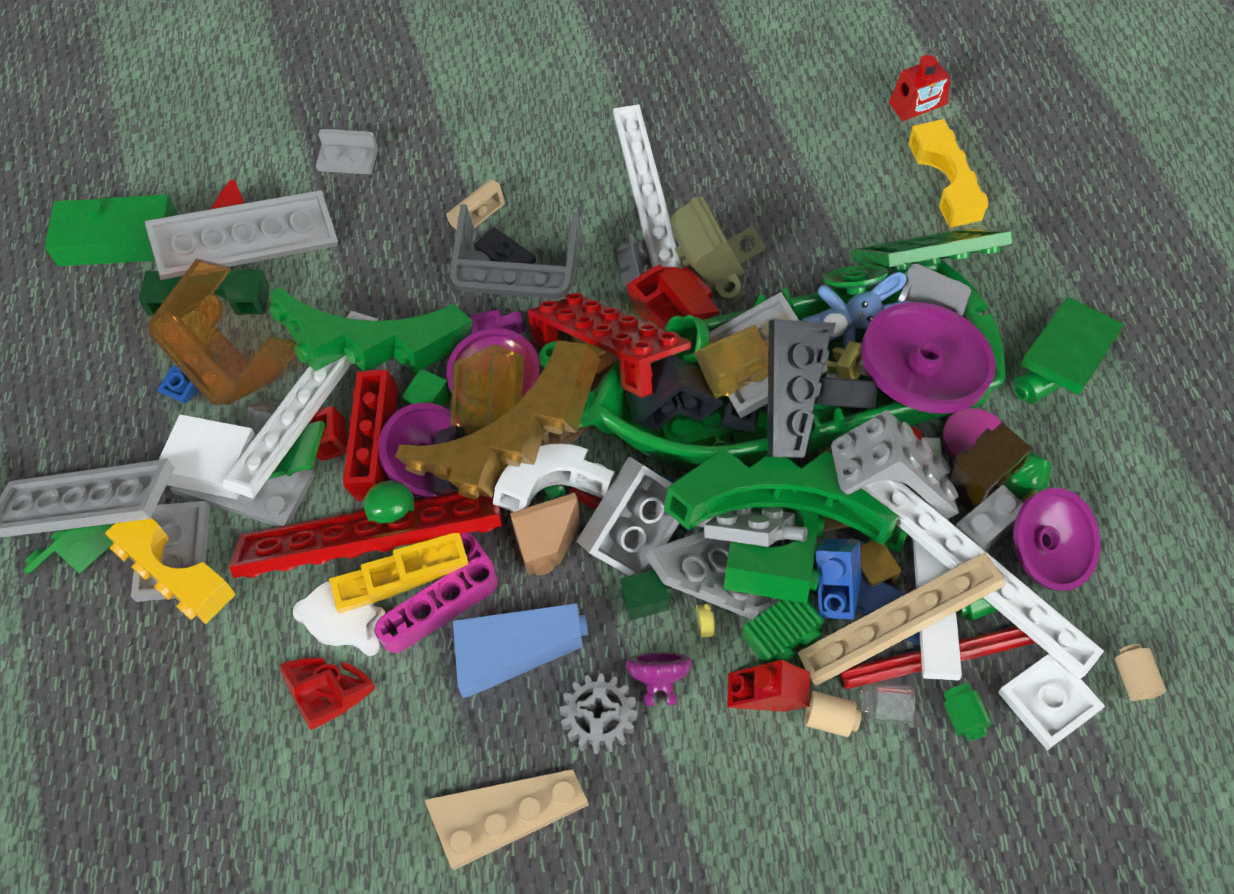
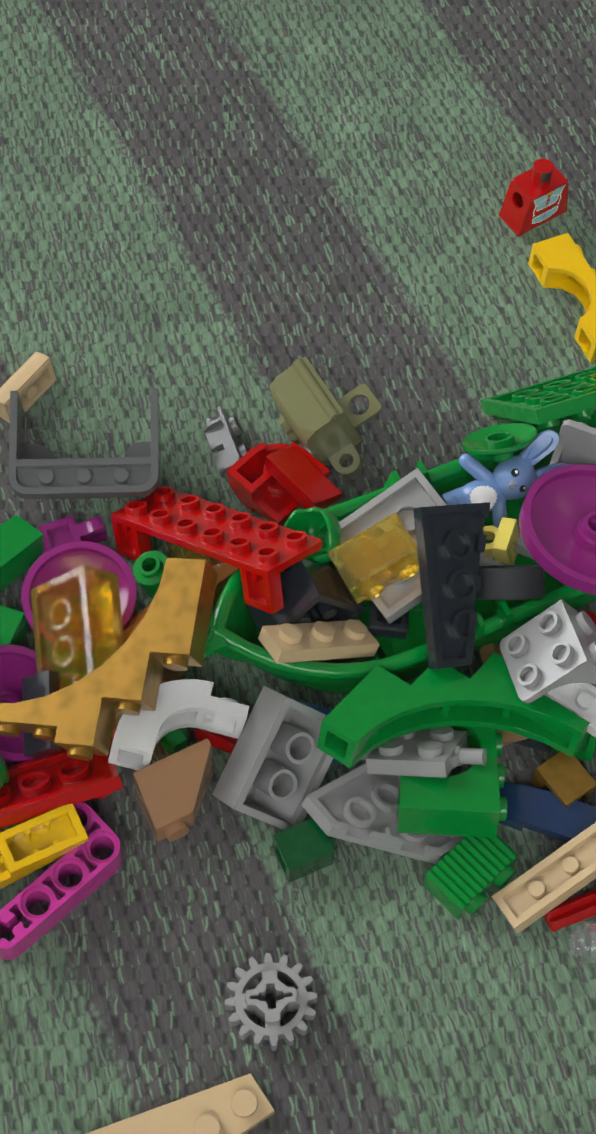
camera: 15 degrees left, 0 degrees up
(503, 249) = (65, 439): black plate -> none
(513, 643) = (155, 929): medium blue slope -> none
(646, 187) = (228, 345): white tile -> none
(659, 673) = (335, 942): magenta hair -> none
(678, 424) = (318, 641): none -> tan plate
(705, 620) = (379, 871): light yellow tile -> none
(769, 687) = (465, 943): red slope -> none
(832, 714) = (541, 965): tan brick -> none
(838, 577) = (529, 802): blue slope -> none

